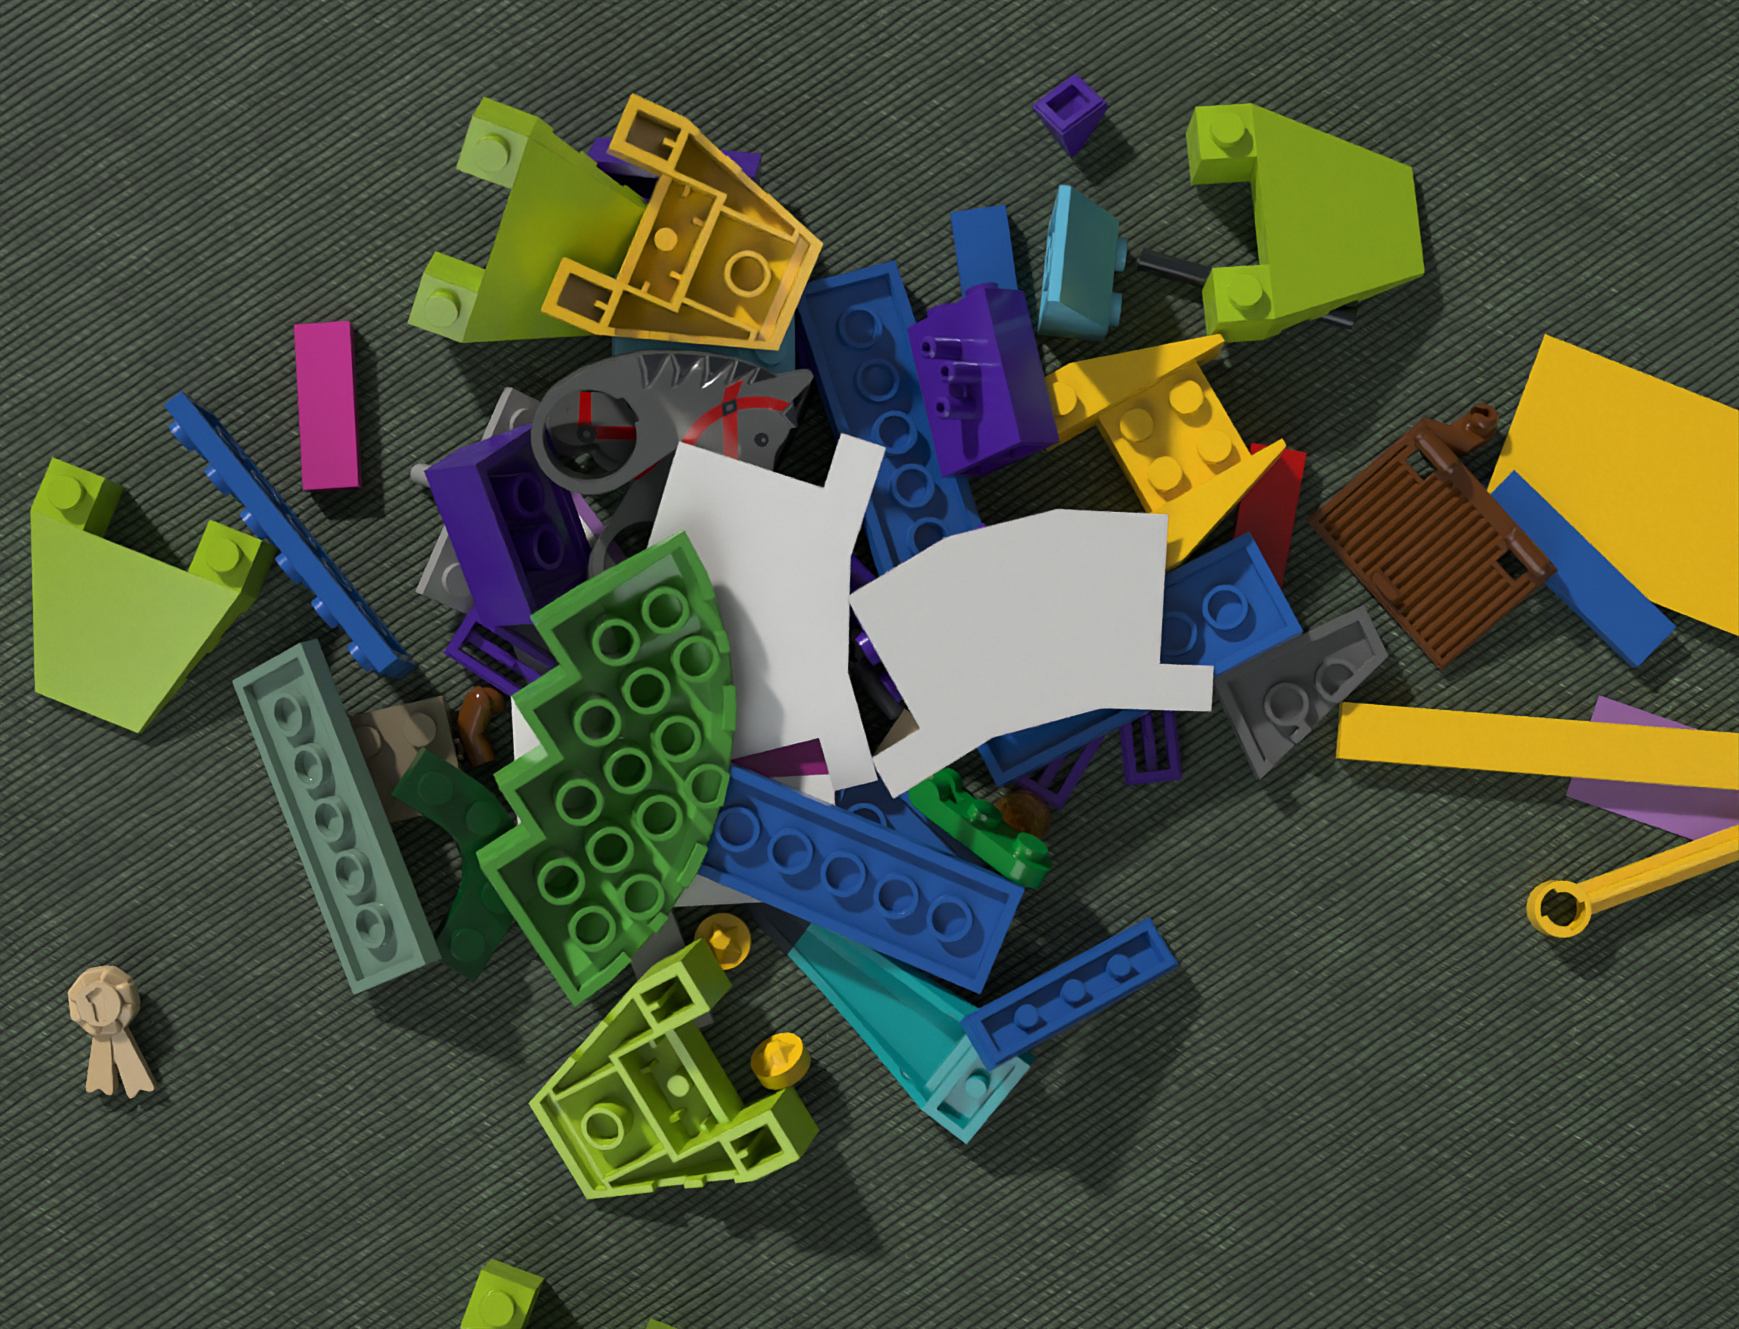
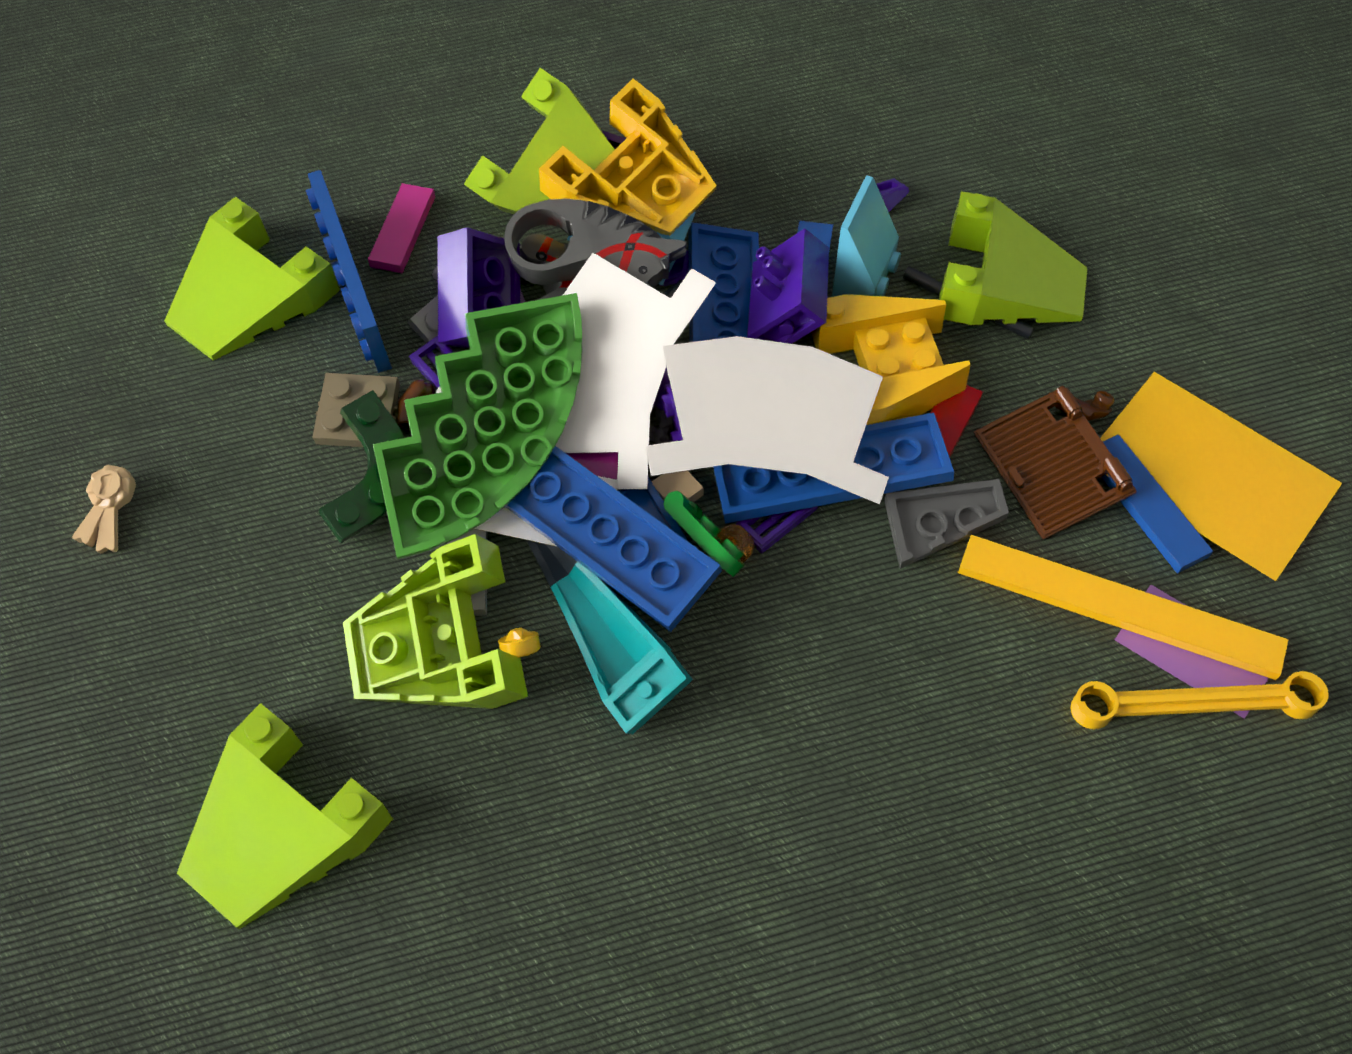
camera: 15 degrees right, 25 degrees down
(336, 817) = (301, 424): sand green plate -> none
(726, 937) = (515, 564): yellow tile -> none
(1068, 994) = (728, 648): blue tile -> none
(1152, 773) = (830, 545): dark purple tile -> none

